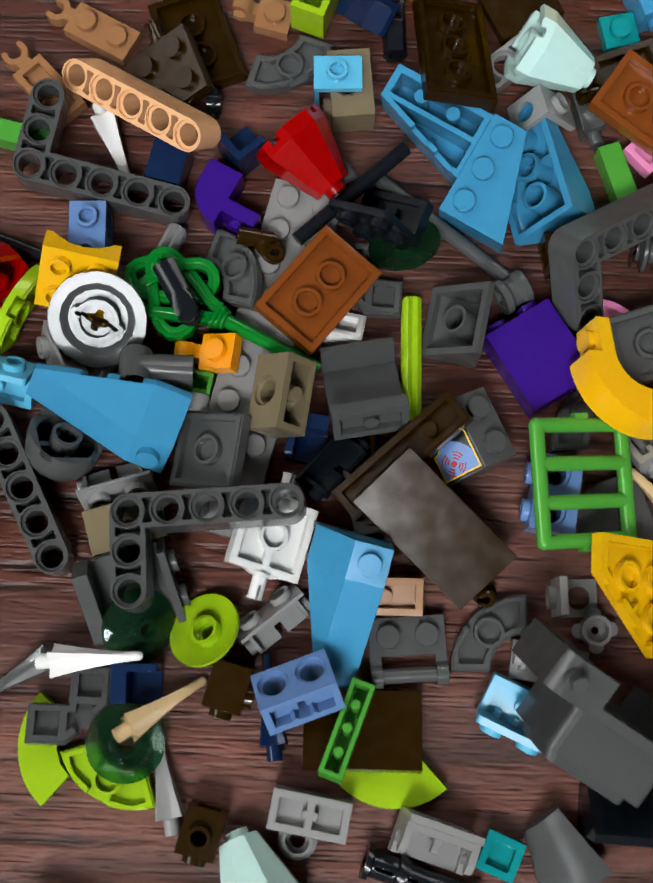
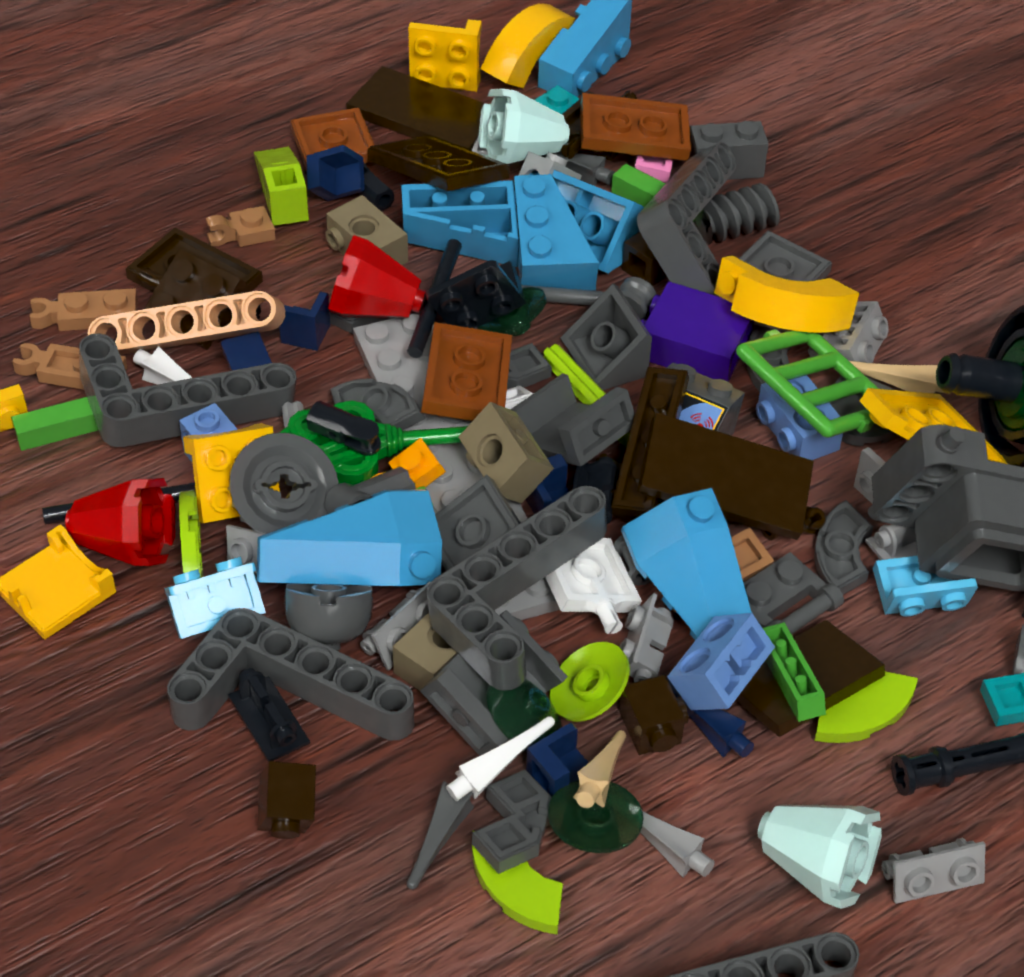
camera: 35 degrees left, 30 degrees down
(119, 796) = (604, 873): lime tile -> none
(201, 833) = (734, 844): dark brown brick -> none
(217, 199) = (322, 369): dark purple brick -> none
(263, 241) = (390, 367): dark brown arm -> none
(286, 70) = (295, 254): dark grey tile -> none
(296, 852) = (825, 790): light grey plate -> none
(310, 814) = (816, 758): light grey hinge -> none
(337, 74) = (342, 225): medium azure bracket -> none
(435, 841) = (946, 715): light grey hinge -> none

